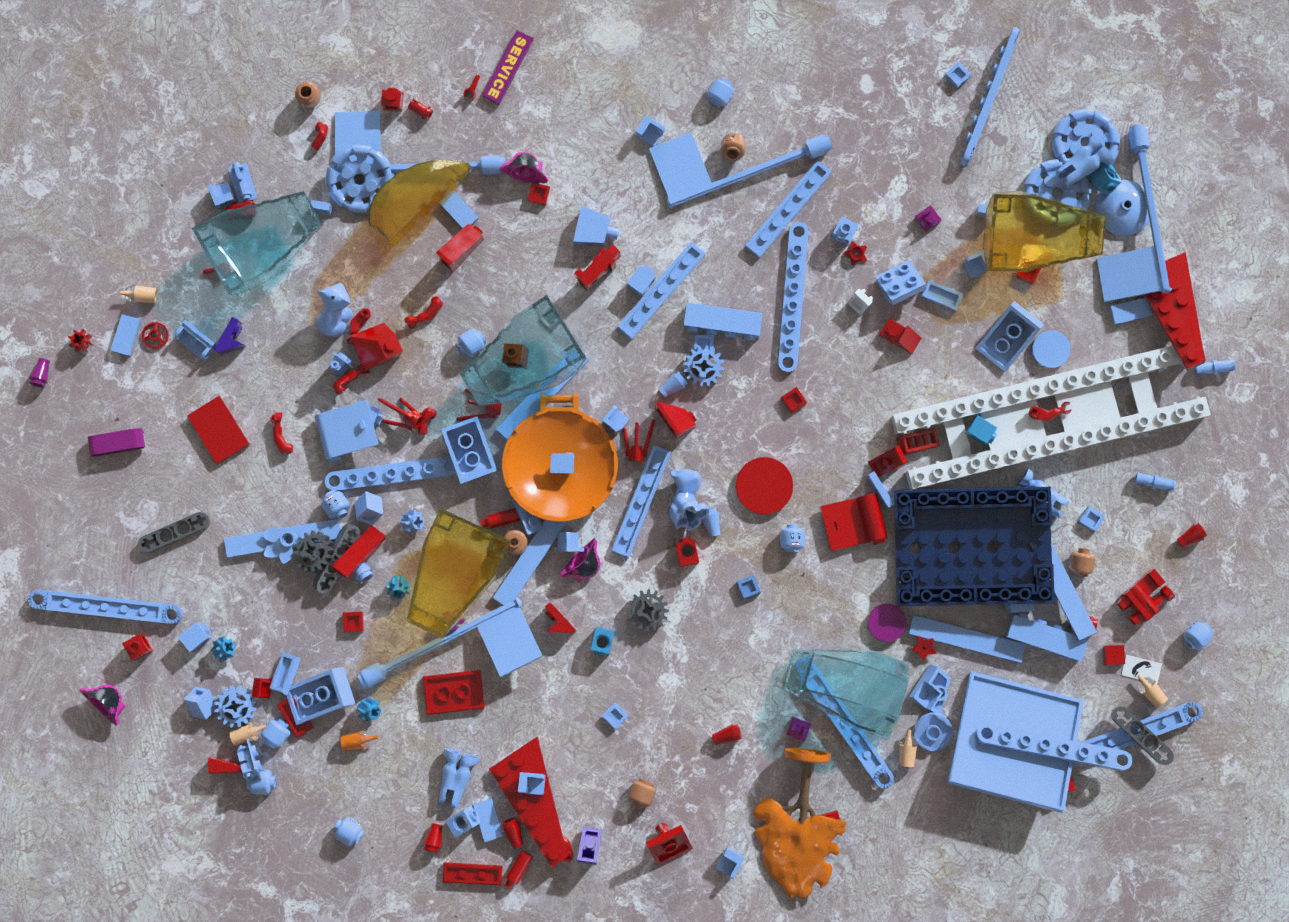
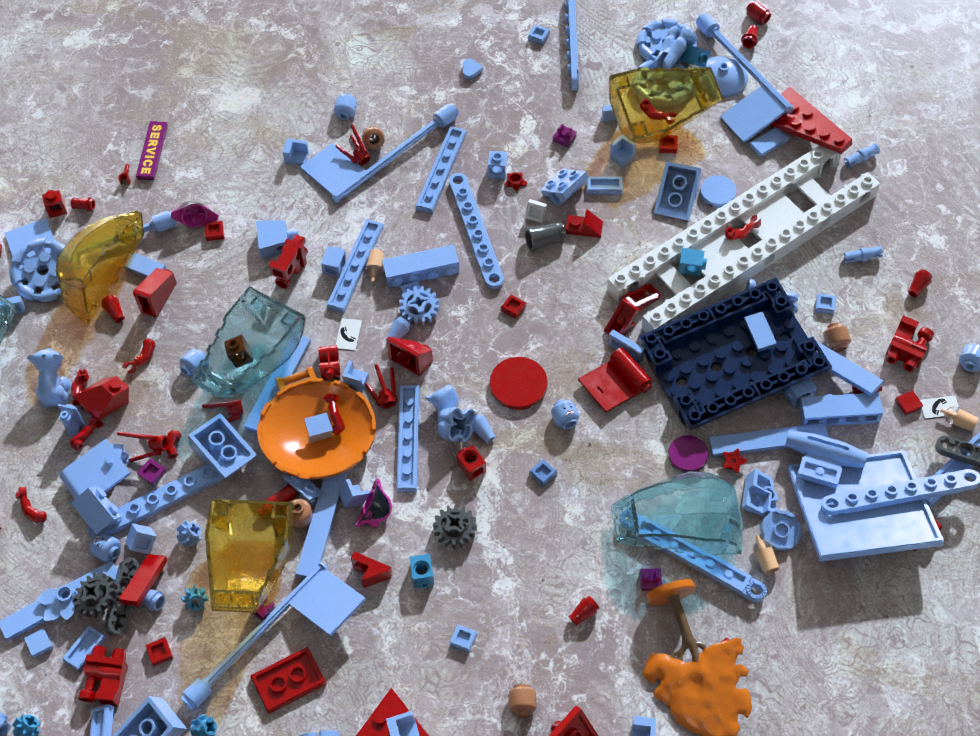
camera: 20 degrees left, 25 degrees down
(253, 571) = (38, 643): none -> light blue tile
(291, 592) = (84, 645): none -> light blue tile
(305, 625) = (108, 671): none -> red hips
(337, 471) = (96, 509): none -> light blue brick
(397, 446) = (151, 472): none -> magenta tile
(414, 248) = (112, 306): none -> red cone
(581, 466) = (338, 426): none -> red arm
(596, 397) = (329, 362): none -> red beam
(627, 365) = (348, 334): none -> white sticker
(679, 300) = (374, 265): none -> piece
(713, 162) = (360, 154): none -> red plant
(856, 334) = (544, 235): none -> dark grey plant
(868, 93) = (471, 69): none -> light blue tile
(1004, 682) = (824, 457): none -> light blue plate
(1008, 534) = (760, 331): none -> light blue tile
(1025, 238) = (651, 112): none -> red arm
(1176, 172) = (750, 37): none -> red cone
(1200, 143) = (758, 12): none -> red brick

